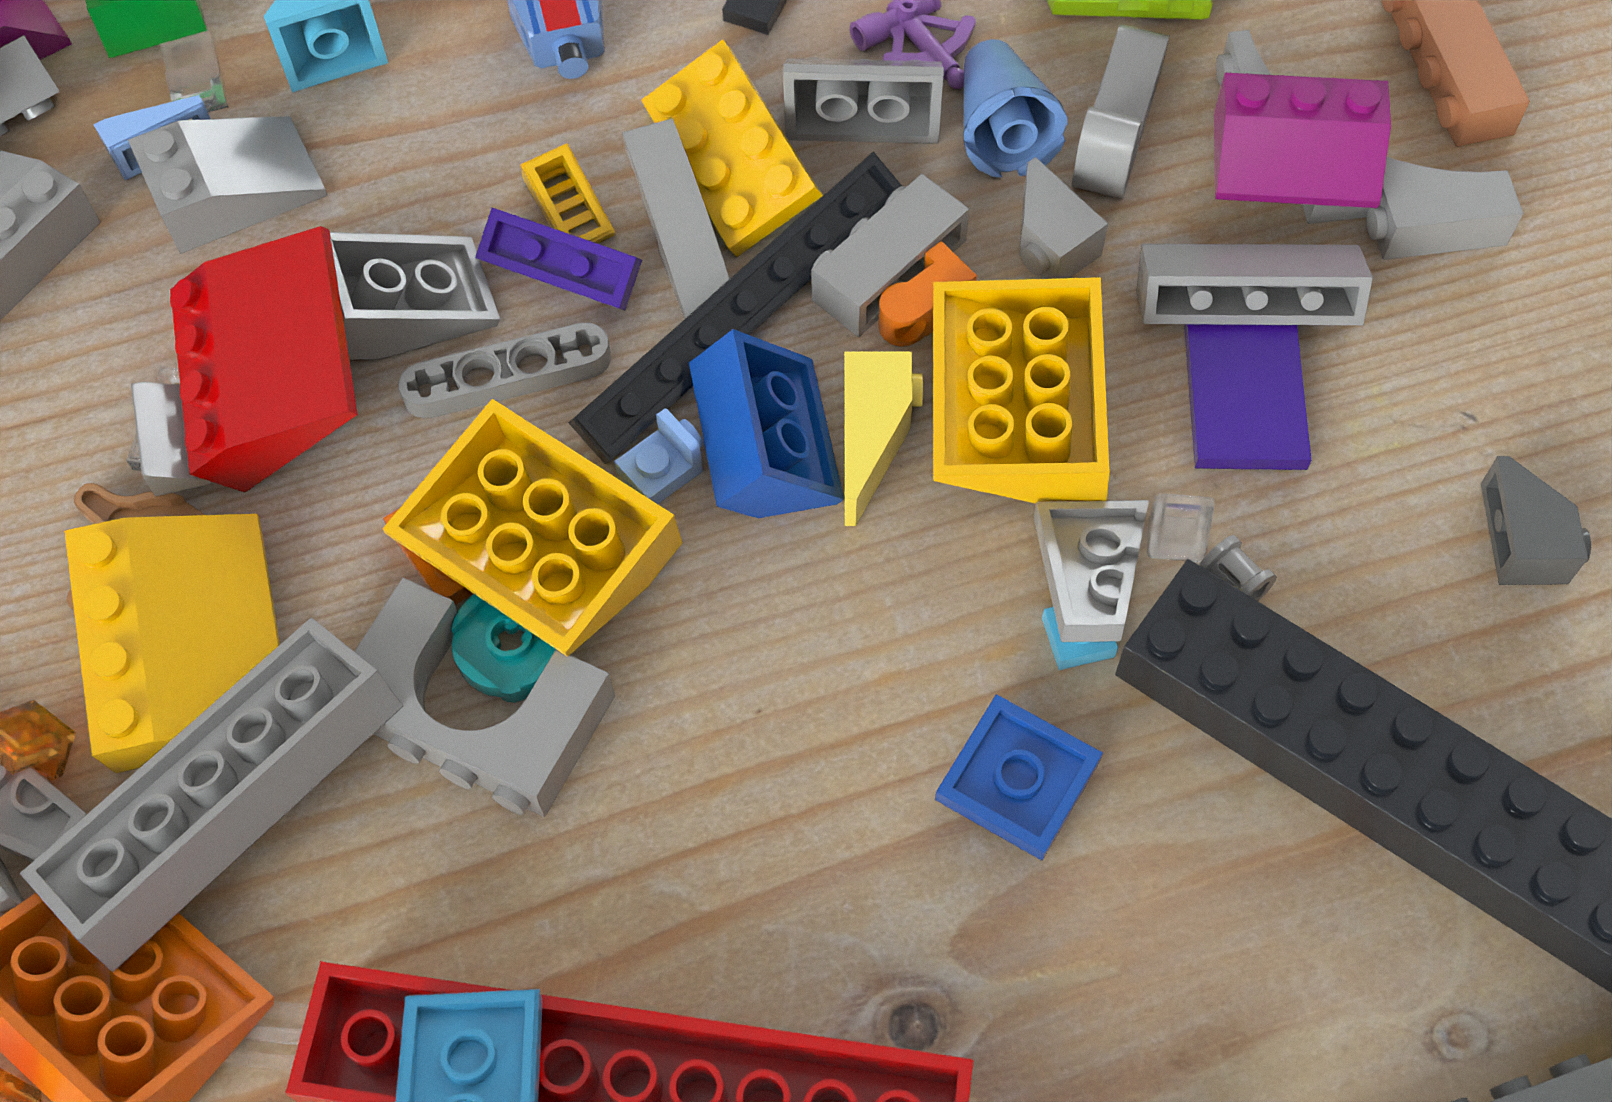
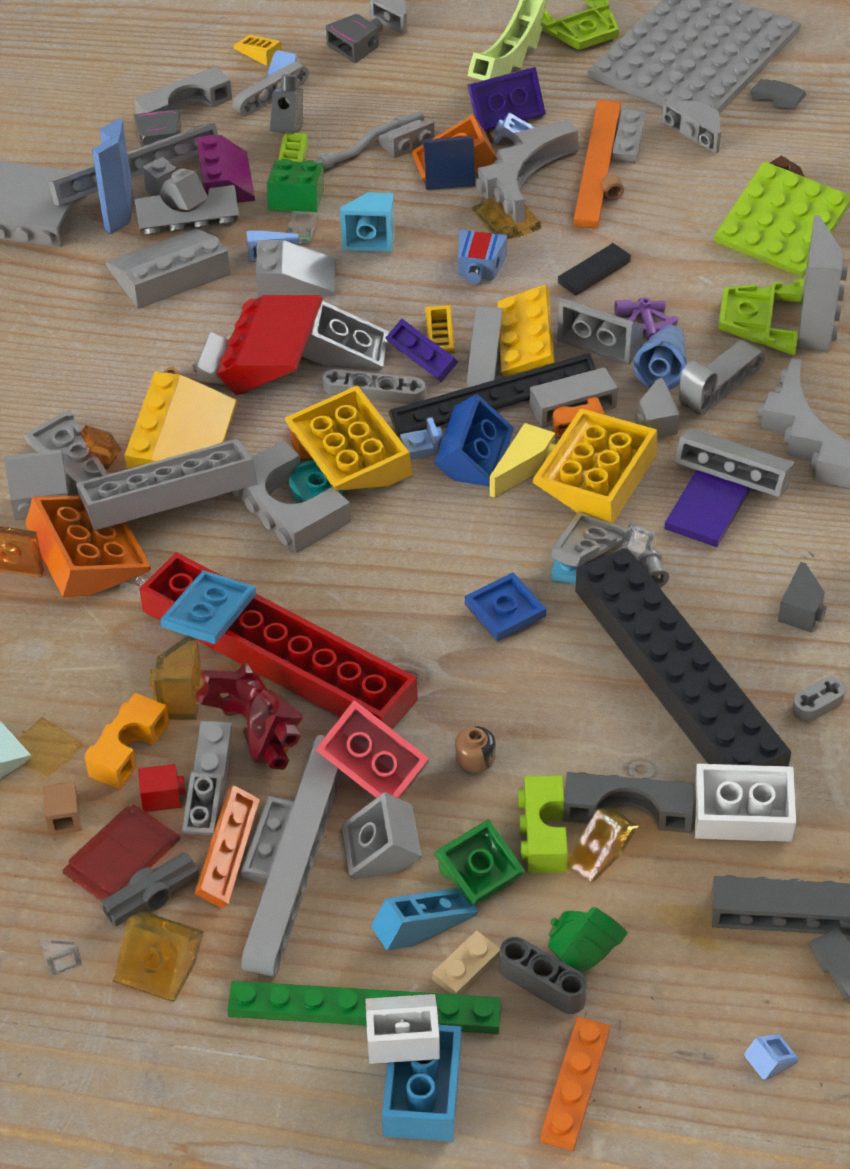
camera: 25 degrees right, 15 degrees down
(1301, 139) = (789, 407): magenta slope -> none

